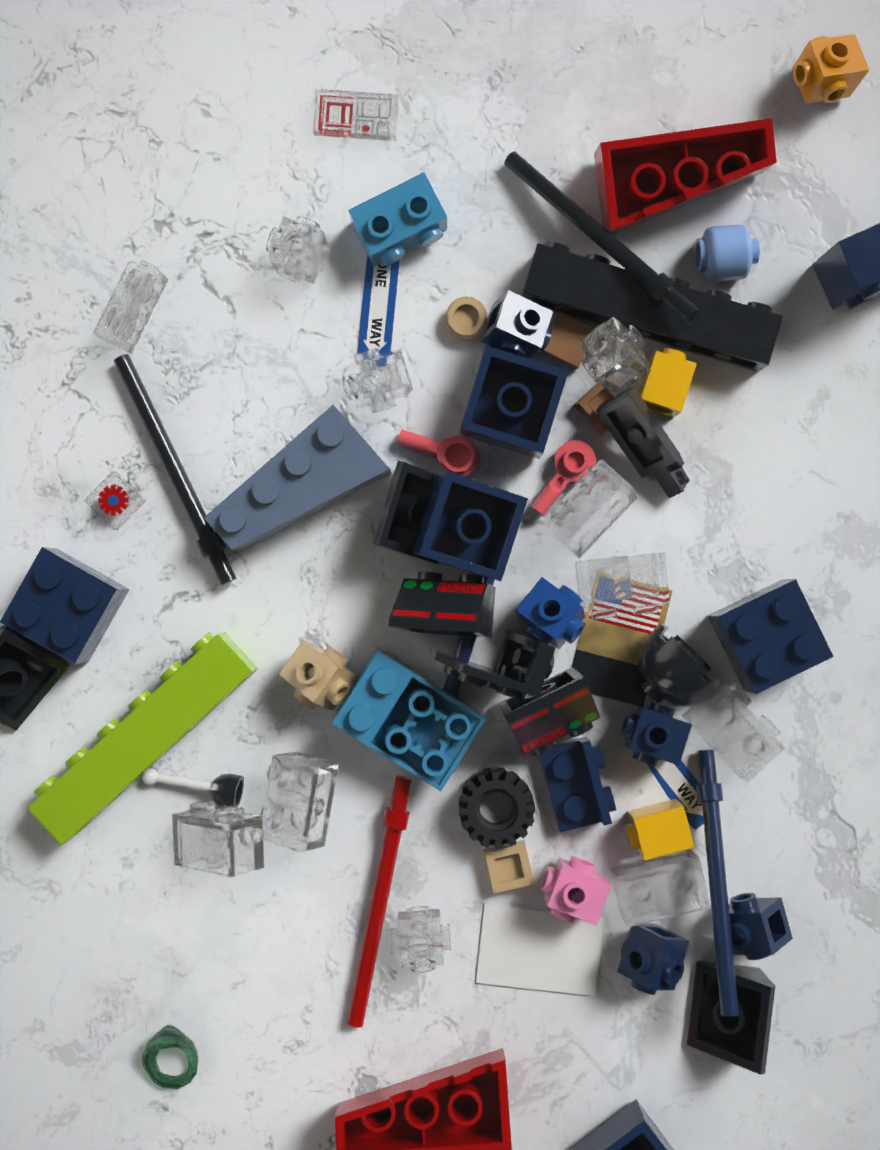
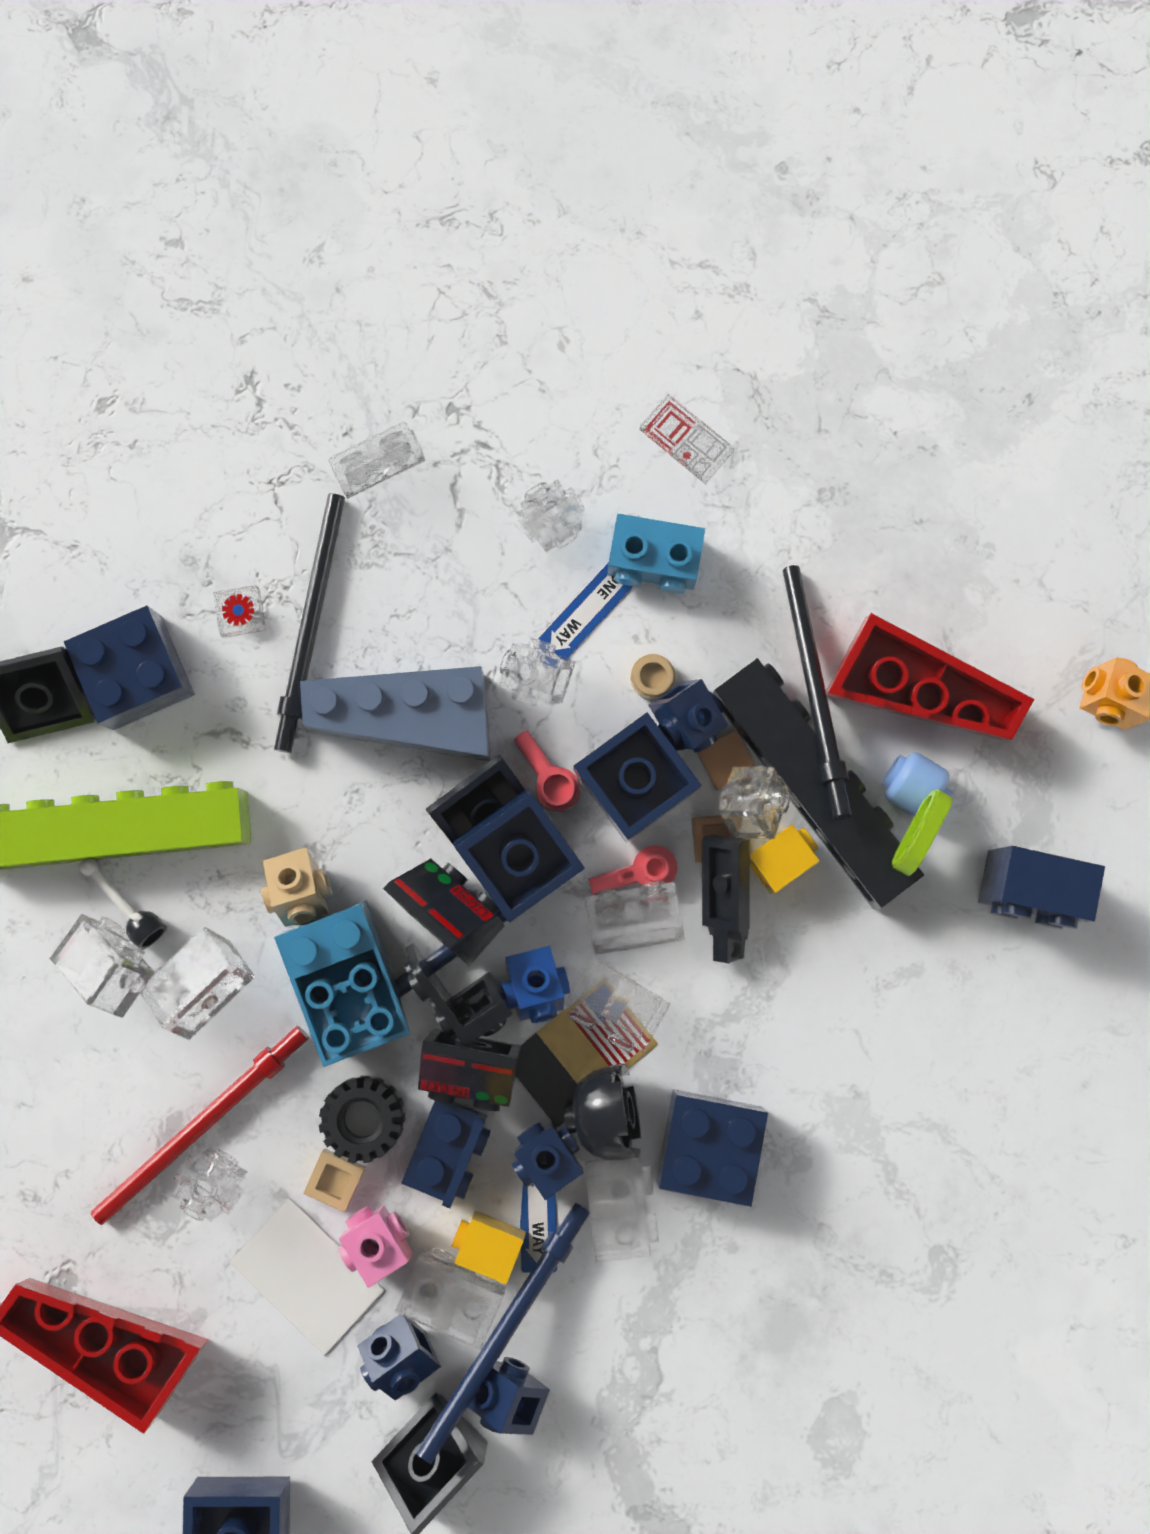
camera: 35 degrees right, 5 degrees down
(760, 283) = (922, 832): none -> lime tile

